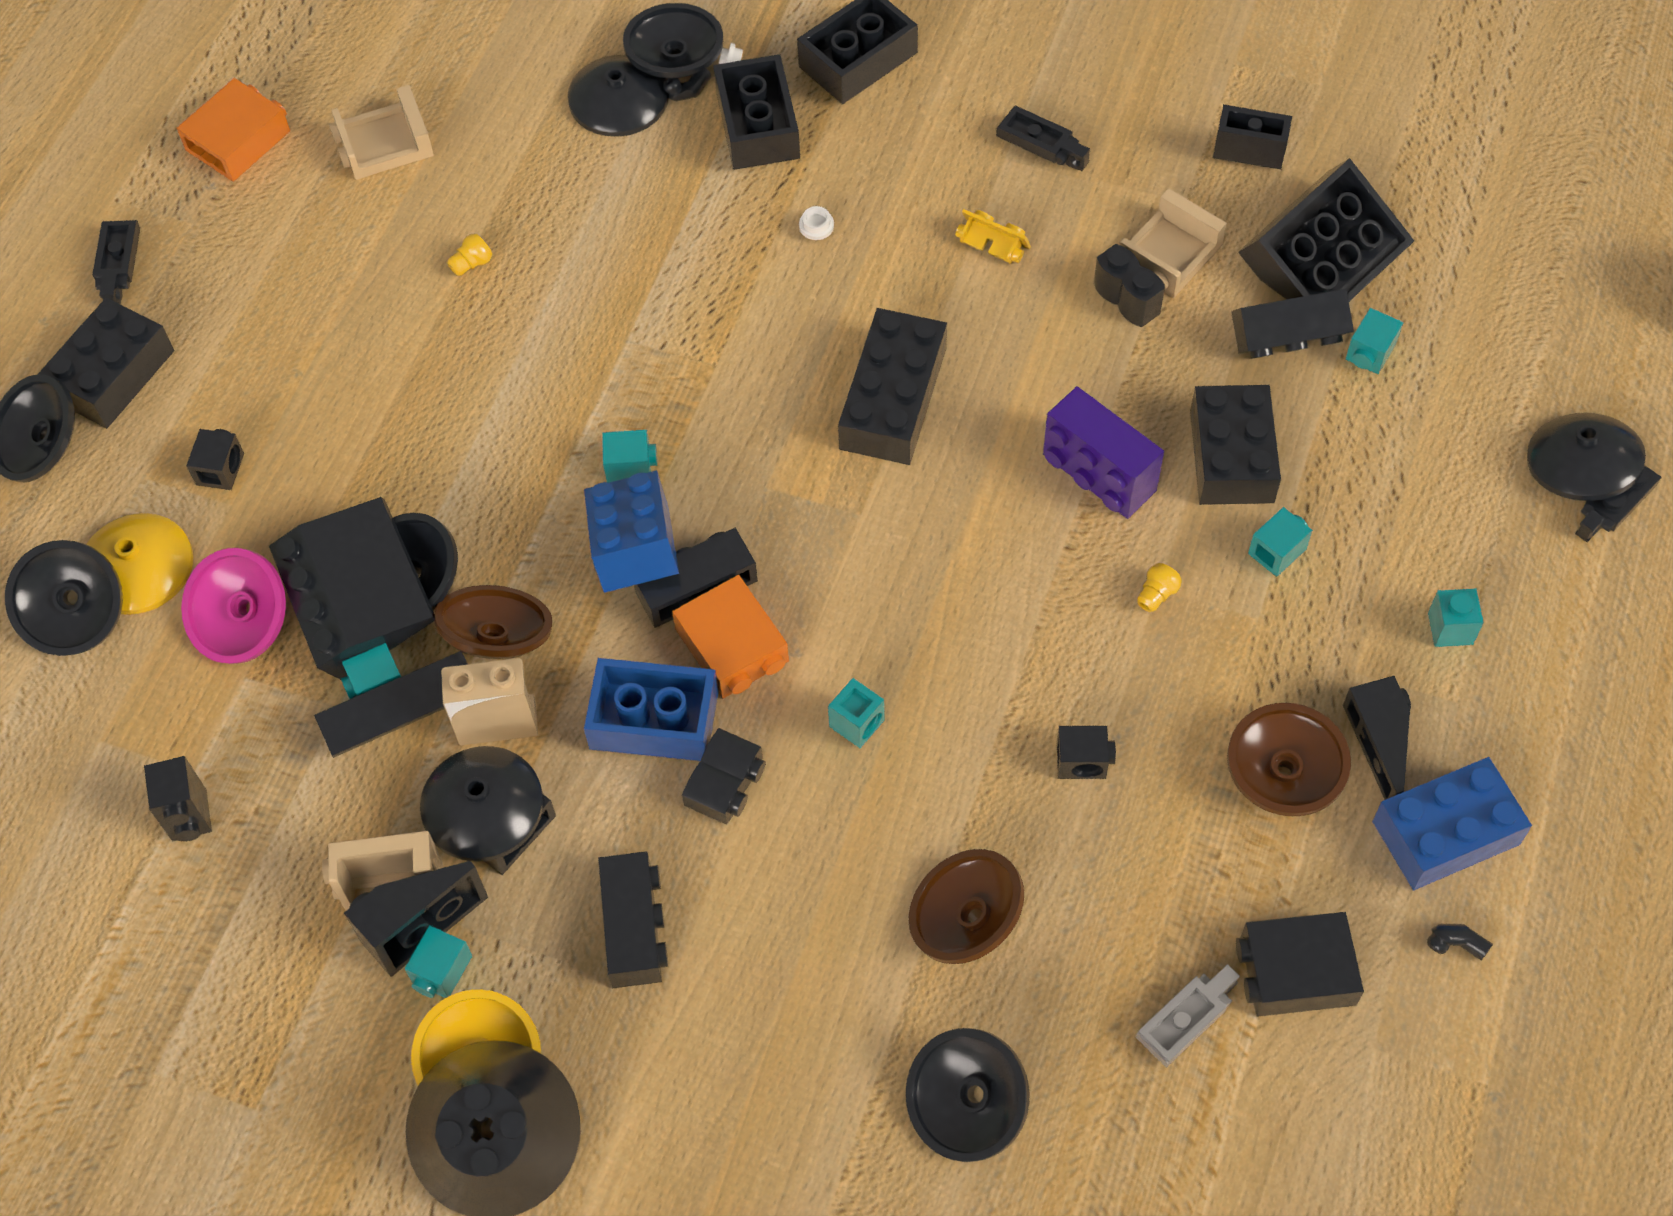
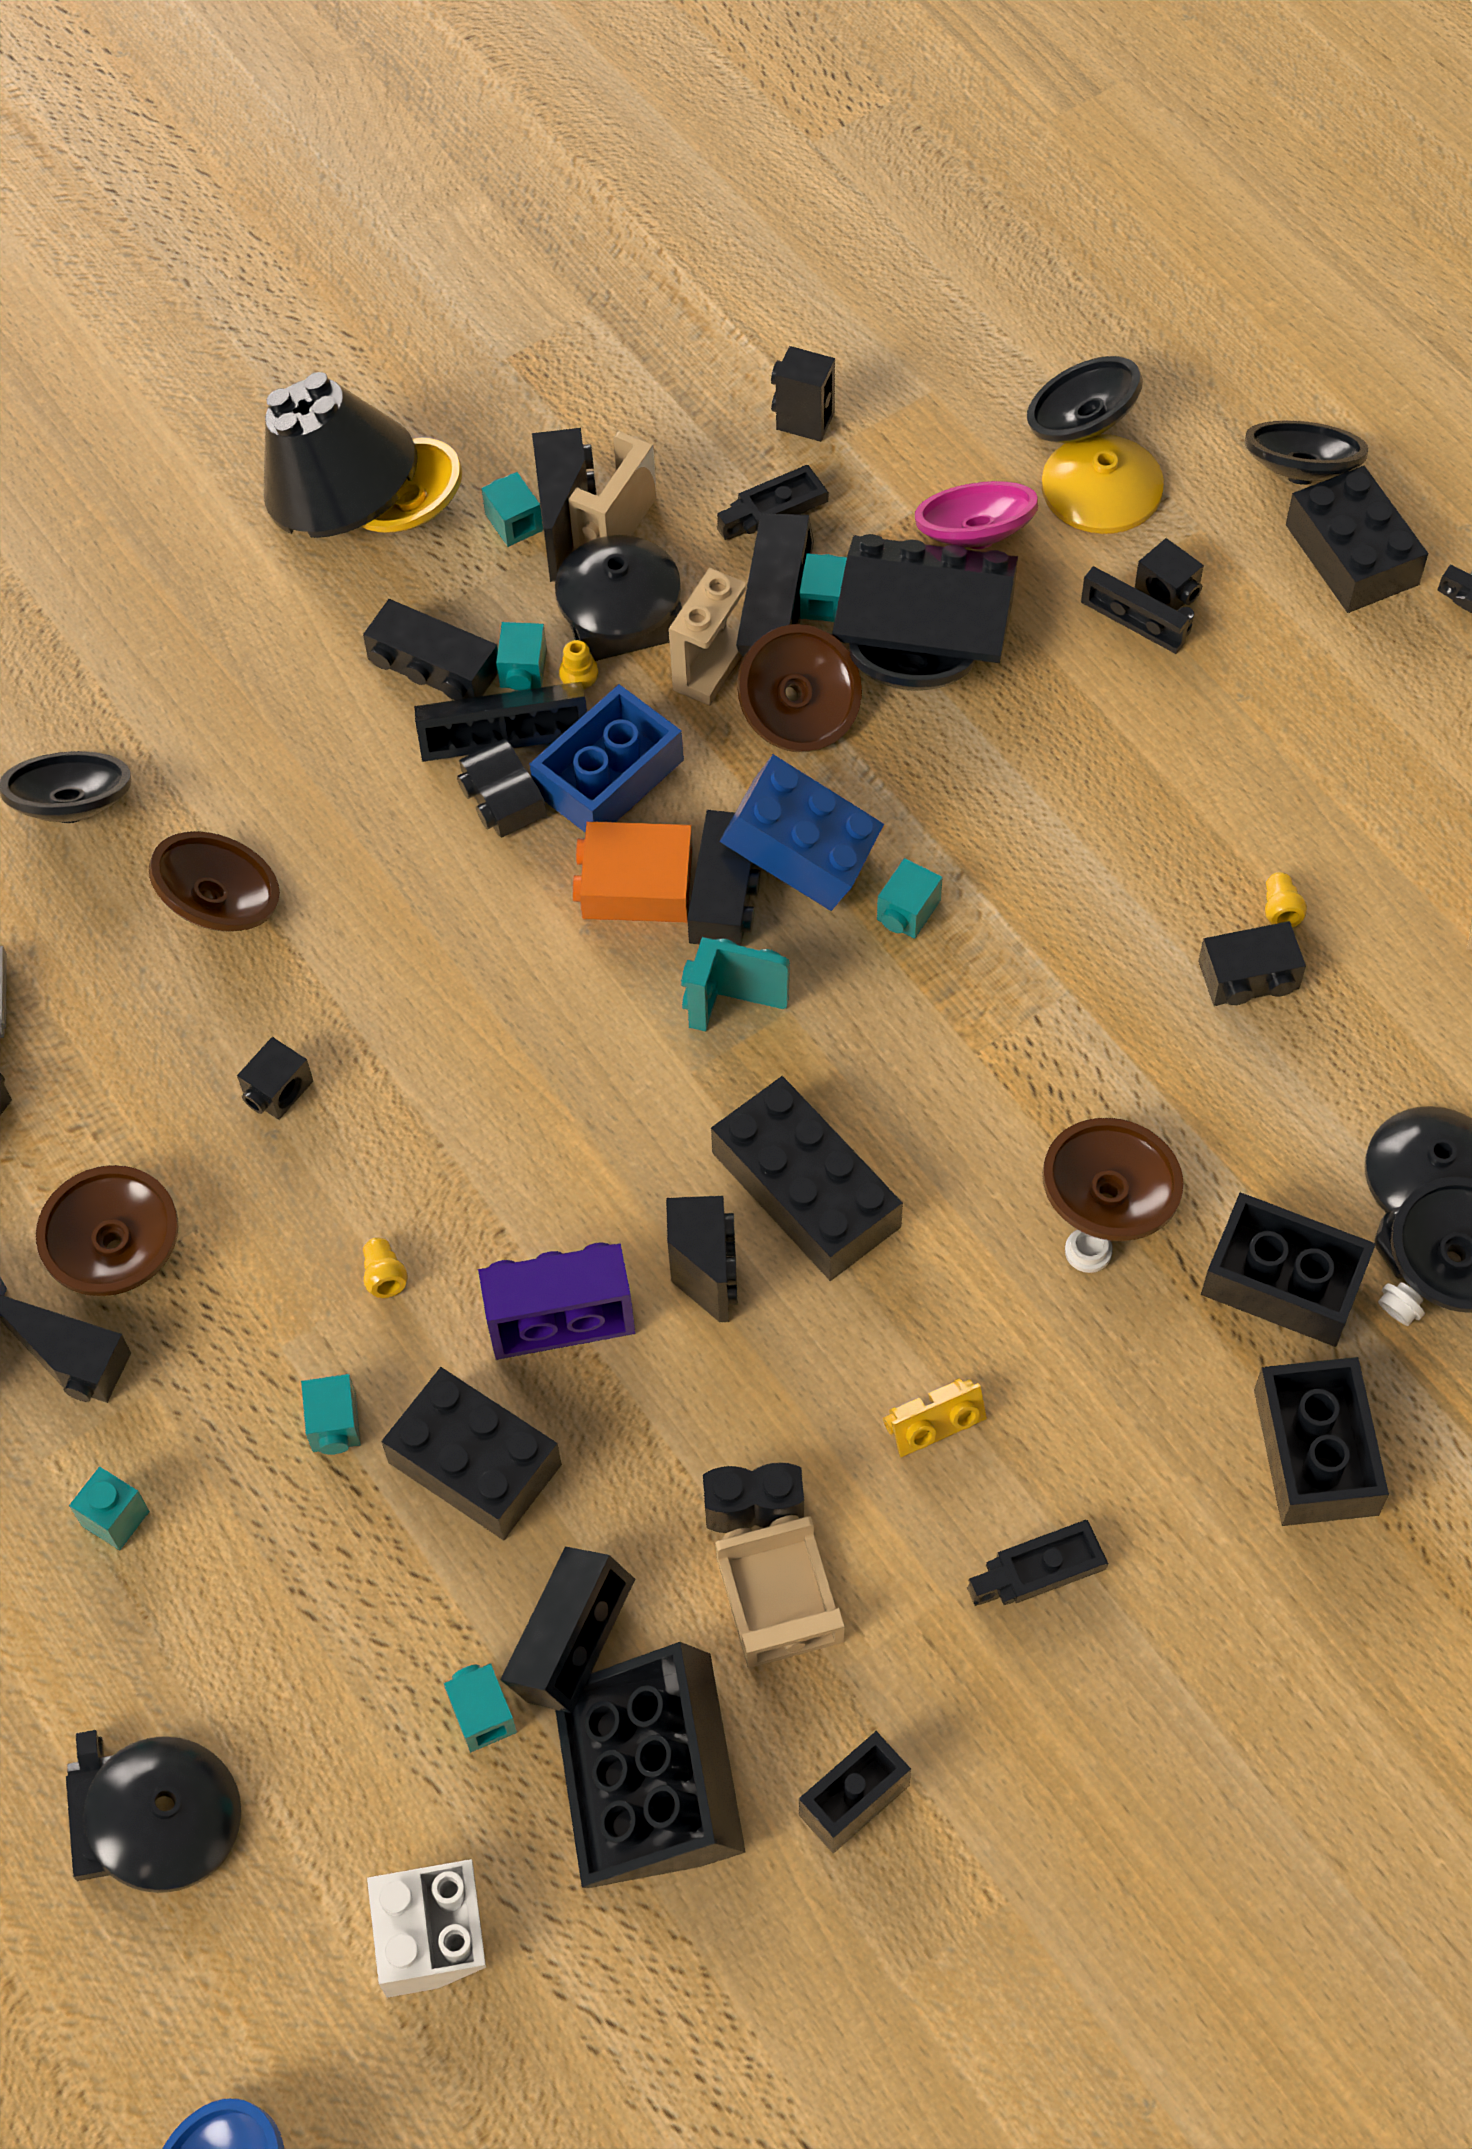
camera: 125 degrees right, 0 degrees up
(263, 462) = (1137, 610): none -> black hinge
(304, 770) = (785, 494): none -> black hinge
(537, 243) = (1252, 964): none -> black brick
(569, 804) = (578, 664): none -> yellow piece
(584, 844) = (521, 655): none -> teal brick
(658, 824) = (518, 716): none -> black brick
(765, 220) = (1118, 1161): none -> reddish brown dish
(792, 519) = (733, 972): none -> teal bracket
(856, 713) = (466, 913): teal brick -> none
(996, 396) = (703, 1252): none -> black slope
(1513, 281) = (426, 1927): none -> white slope

